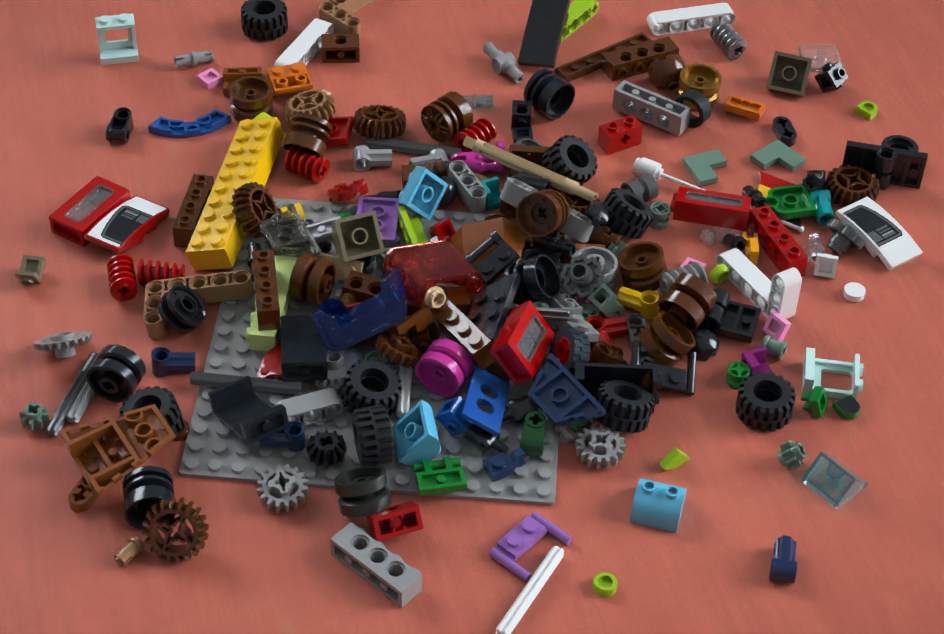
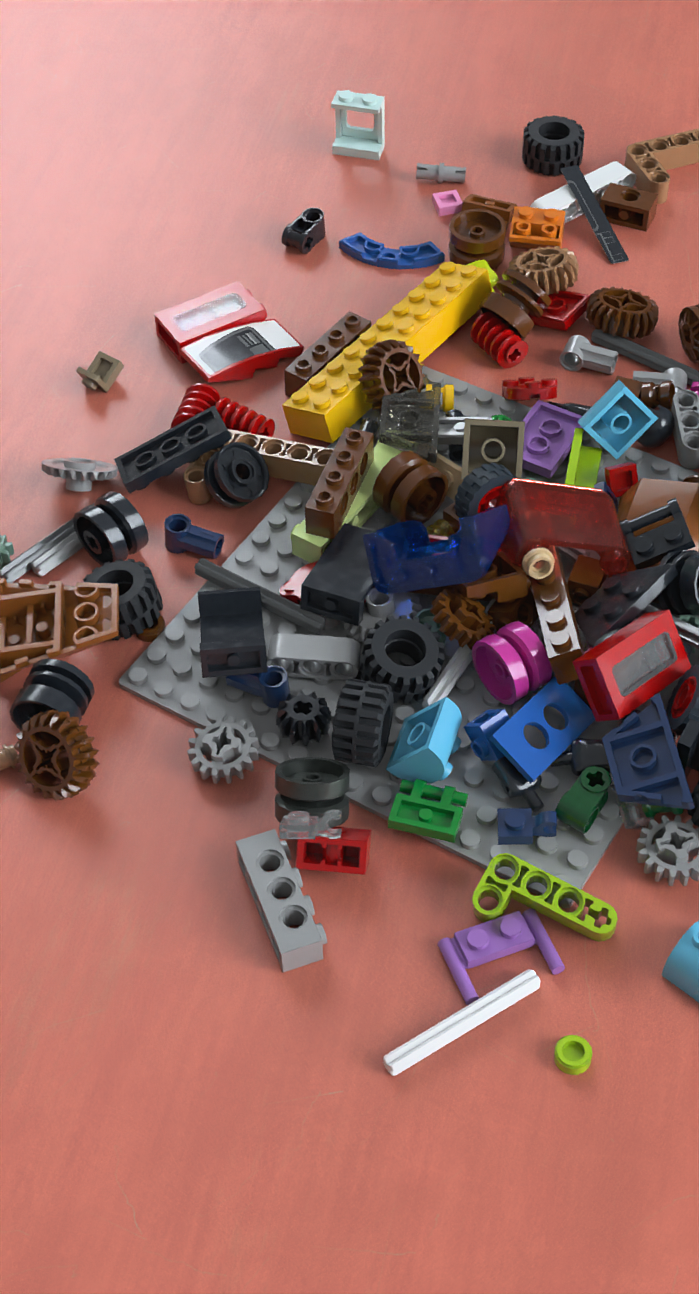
camera: 30 degrees right, 5 degrees up
(125, 305) = (172, 449): none -> black plate
(321, 59) = (594, 214): none -> black sticker
(371, 267) = (481, 489): none -> black wheel
(373, 510) = (302, 826): none -> clear plate
(544, 505) = (547, 903): none -> lime beam

